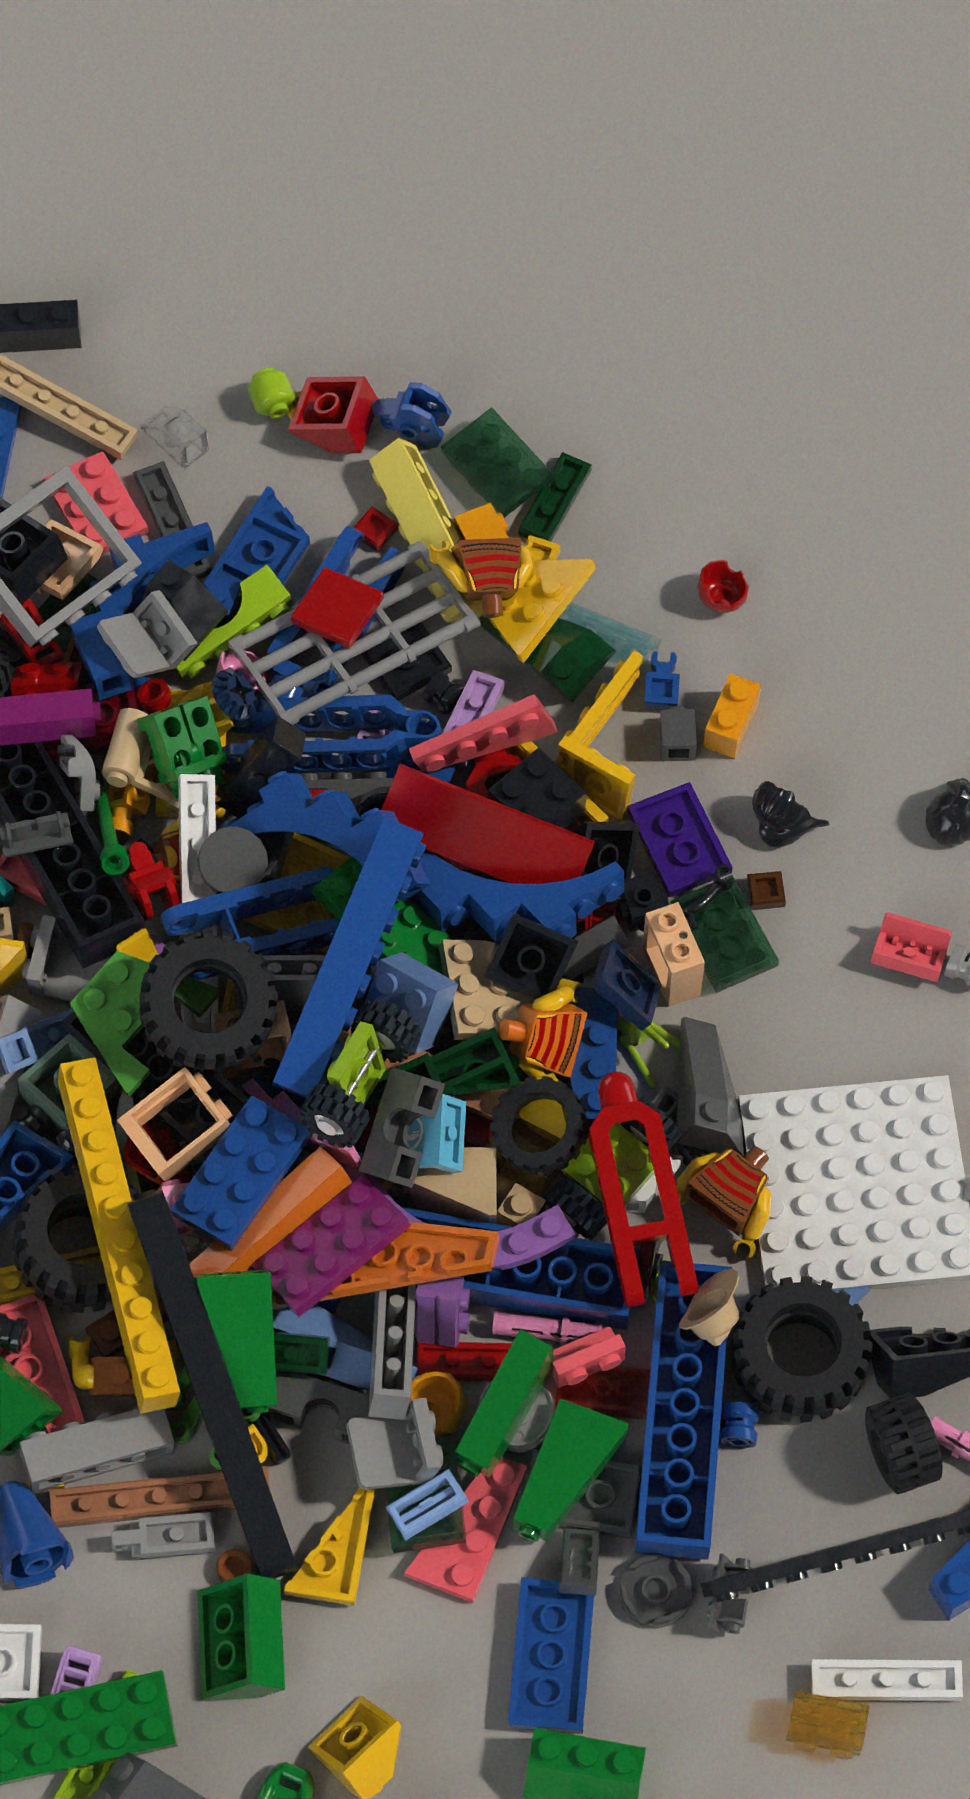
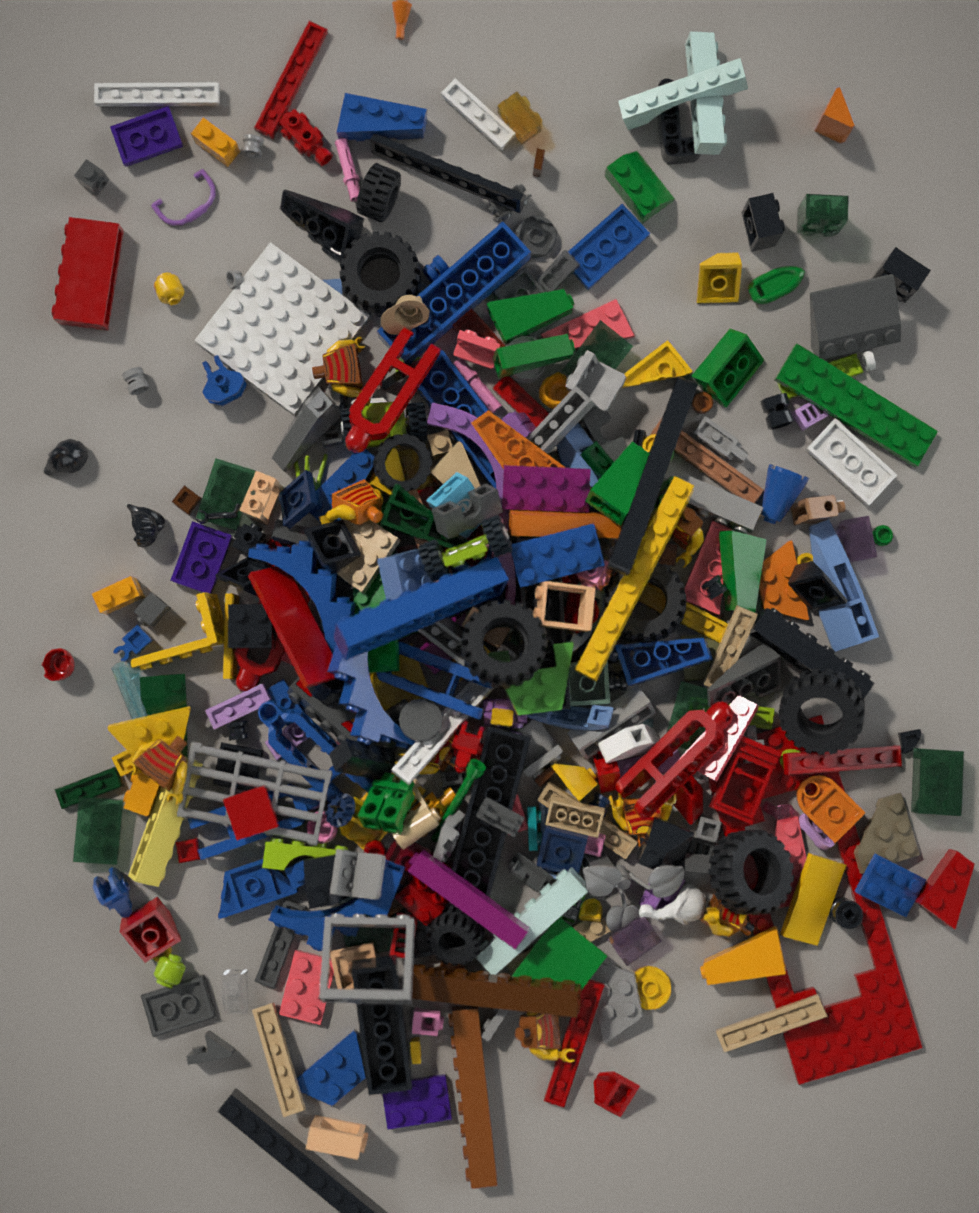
camera: 140 degrees left, 20 degrees up
(112, 1628) = (779, 418): none -> black wheel
(143, 358) = (216, 1049): none -> dark grey slope
(223, 371) = (178, 1006): none -> dark grey tile
(433, 1515) = (605, 340): light blue tile -> none
(496, 731) = (240, 677): coral wing -> none
(744, 1685) = (538, 164): none -> reddish brown tile
(856, 1051) = (221, 382): none -> blue hinge
(911, 947) = (151, 411): coral bracket -> none

